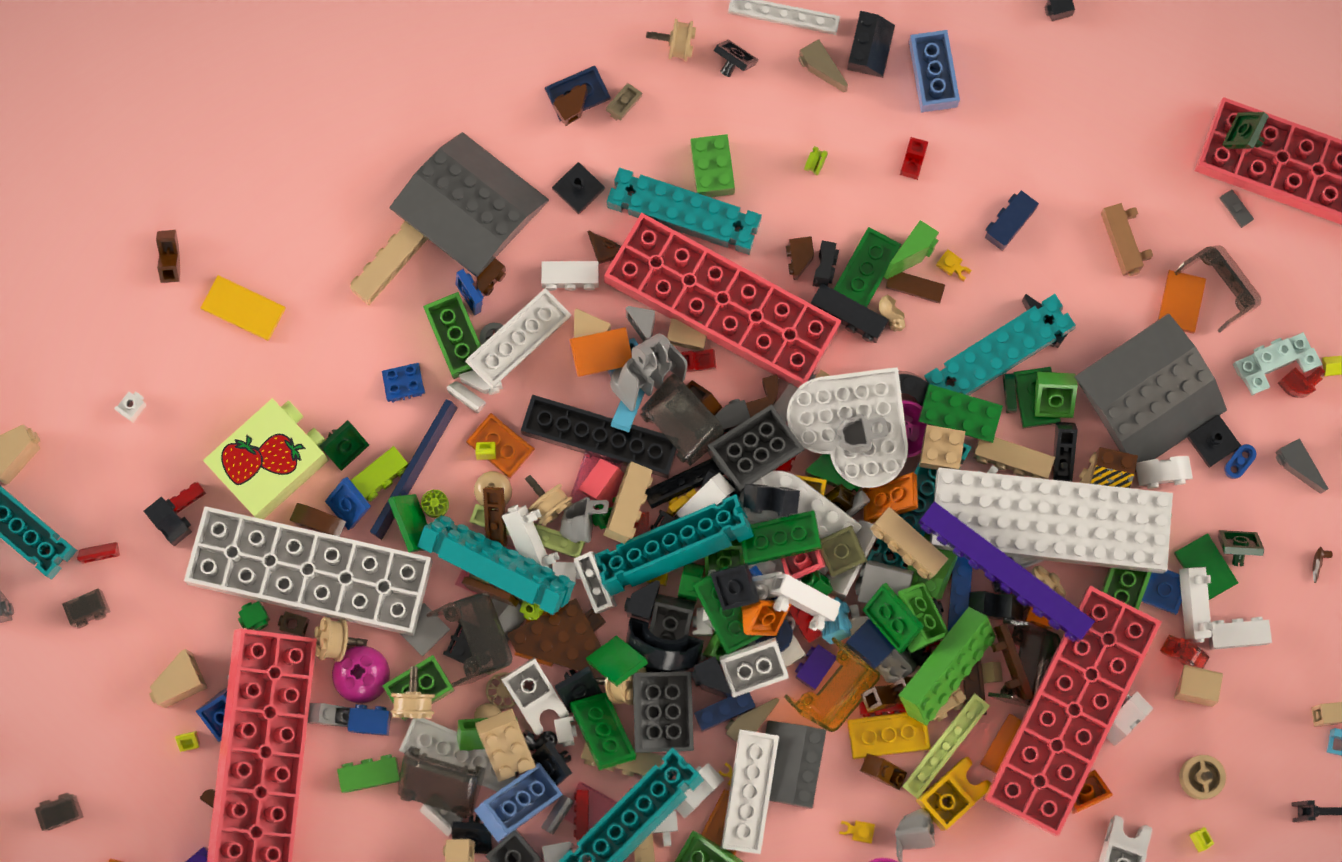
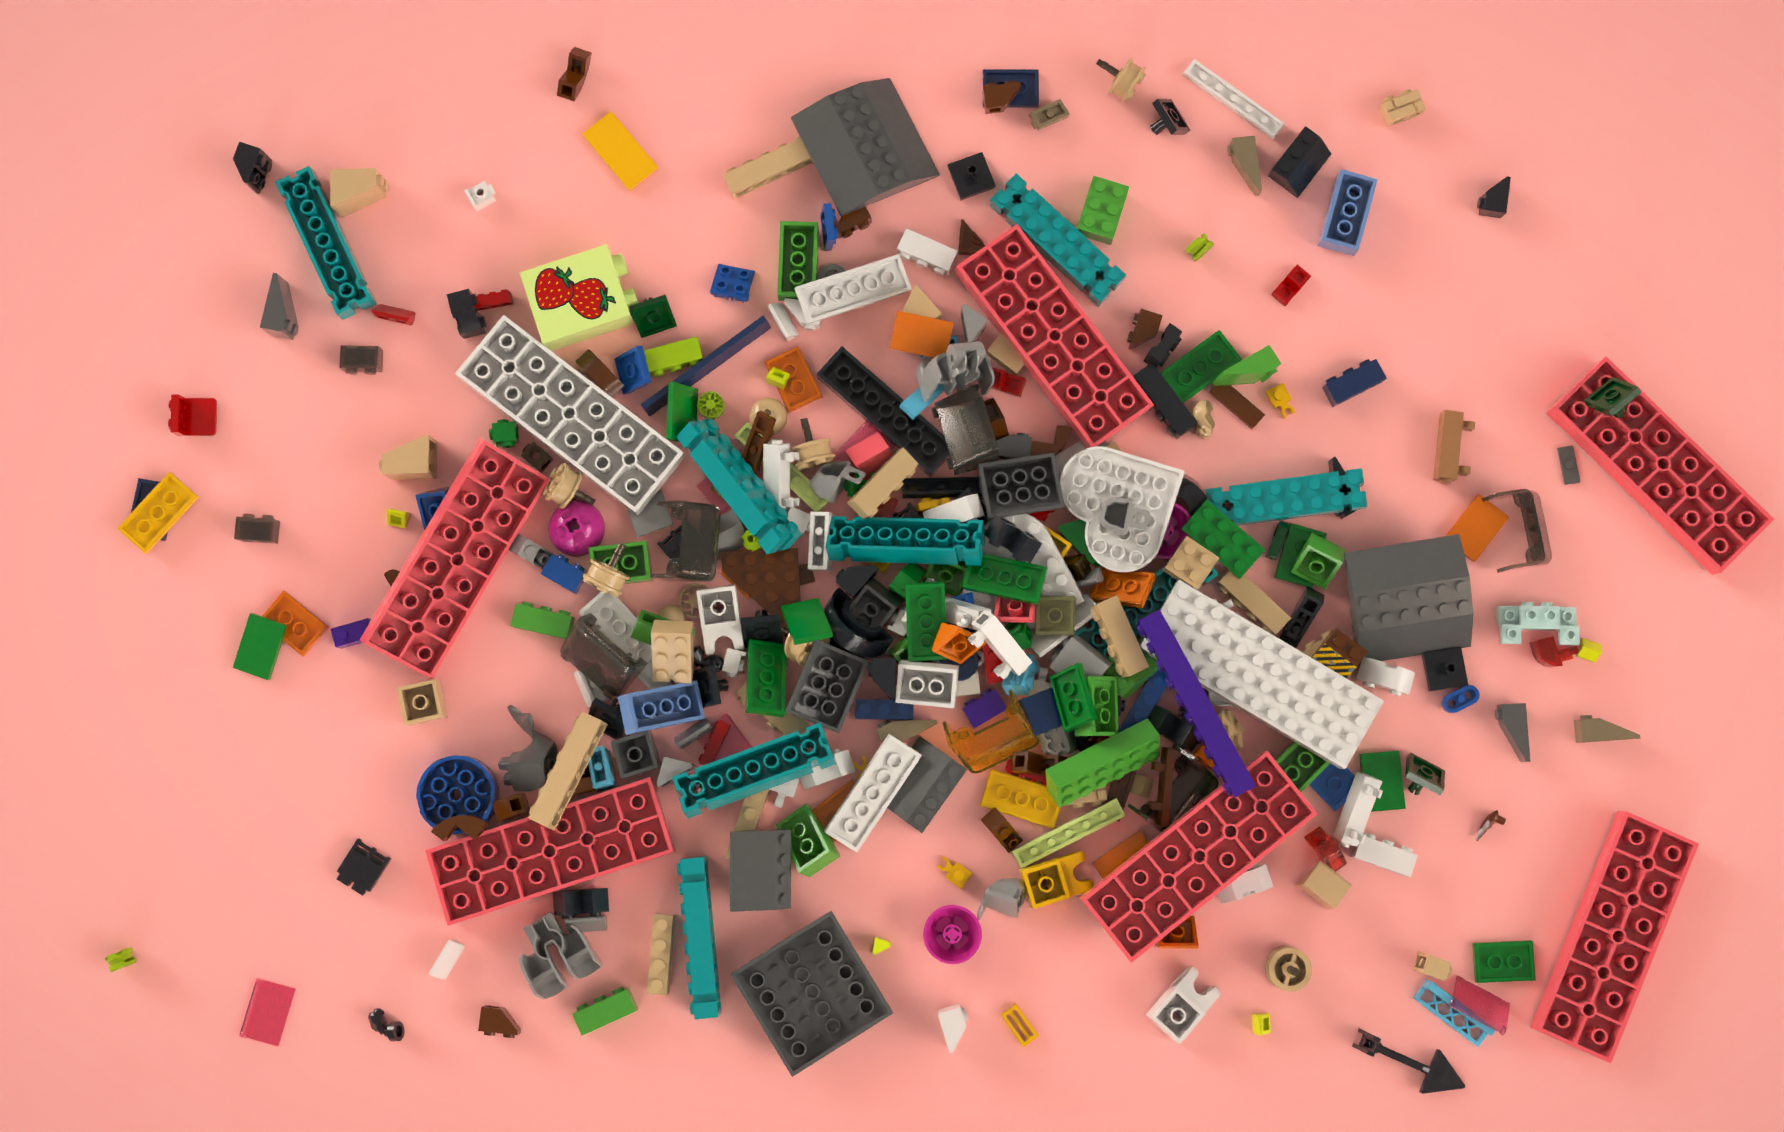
camera: 25 degrees right, 5 degrees up
(493, 592) = (724, 508): reddish brown tile -> none
(735, 587) = (942, 604): black tile -> none

